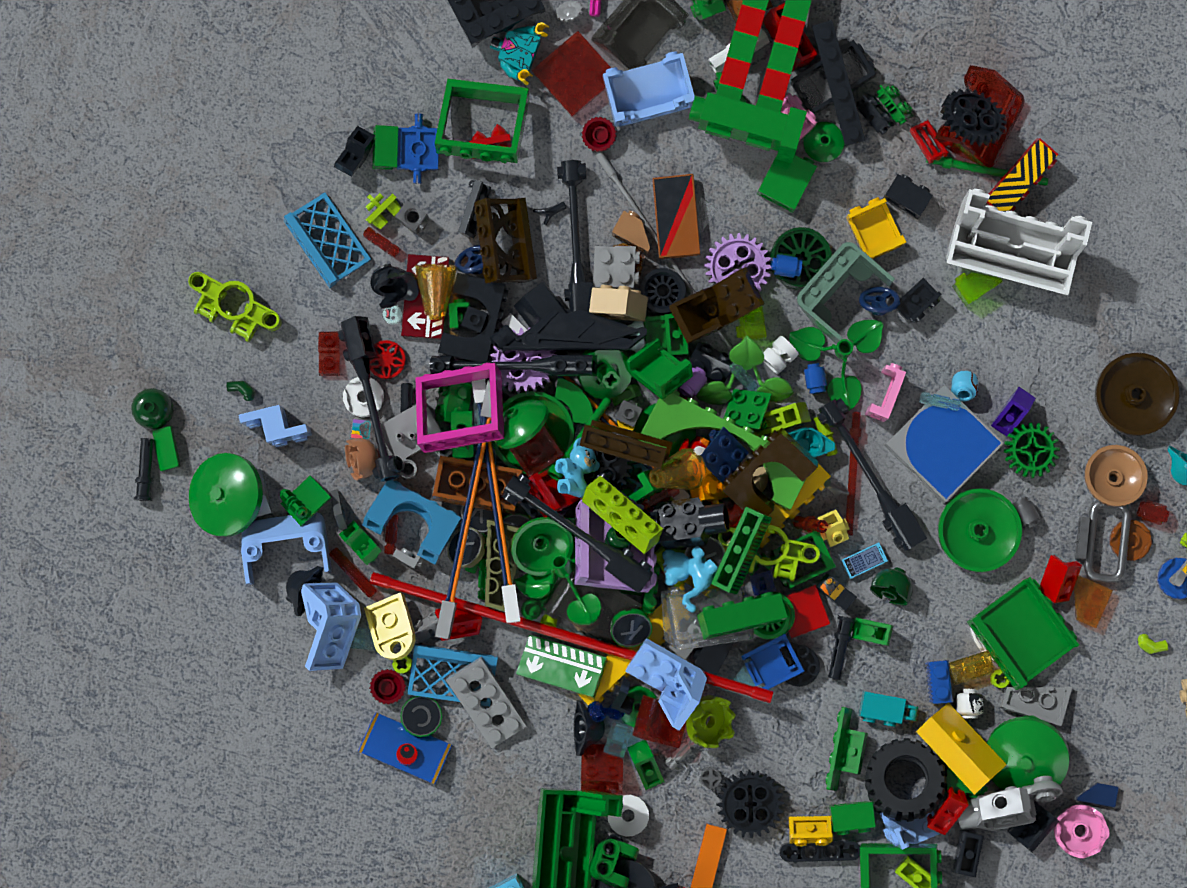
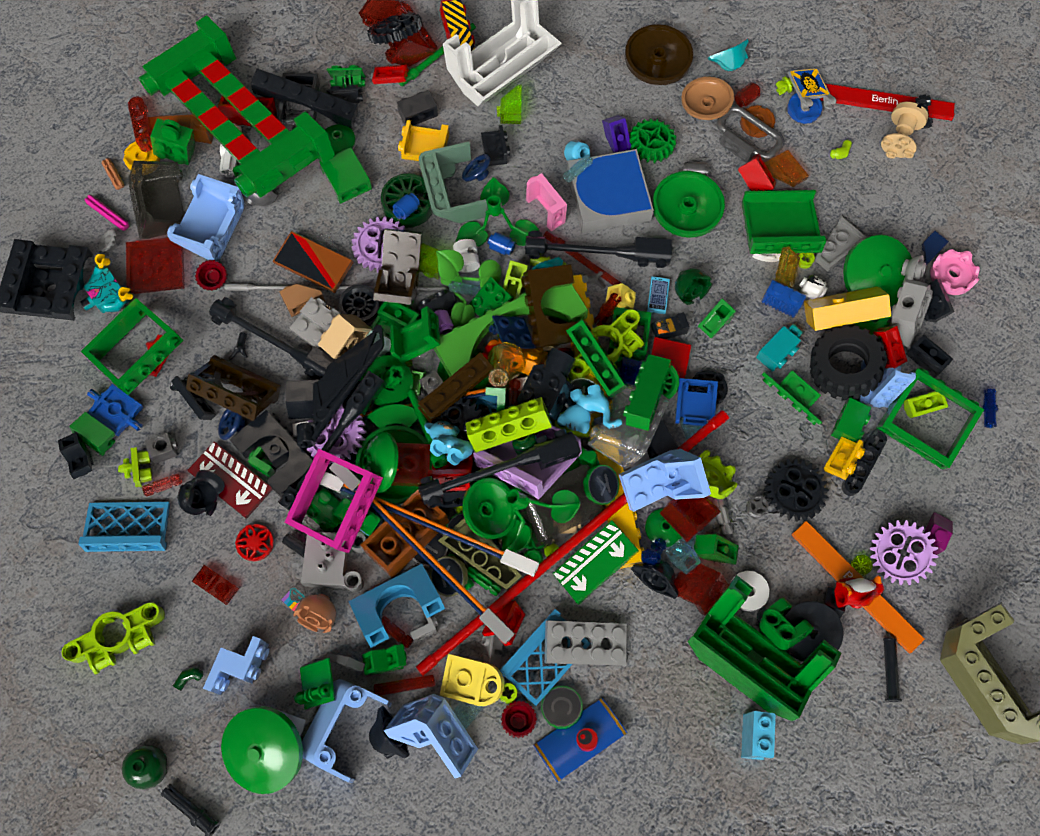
camera: 60 degrees left, 15 degrees down
(166, 448) = (186, 778): green slope -> none
(351, 393) = (281, 583): white tile -> none
(360, 349) = (231, 557): black bar -> none
(392, 315) = (223, 514): clear tile -> none
(435, 288) = (227, 462): clear yellow cone -> none
(620, 699) = (649, 530): black bracket -> none
(843, 637) = (706, 343): black pin -> none

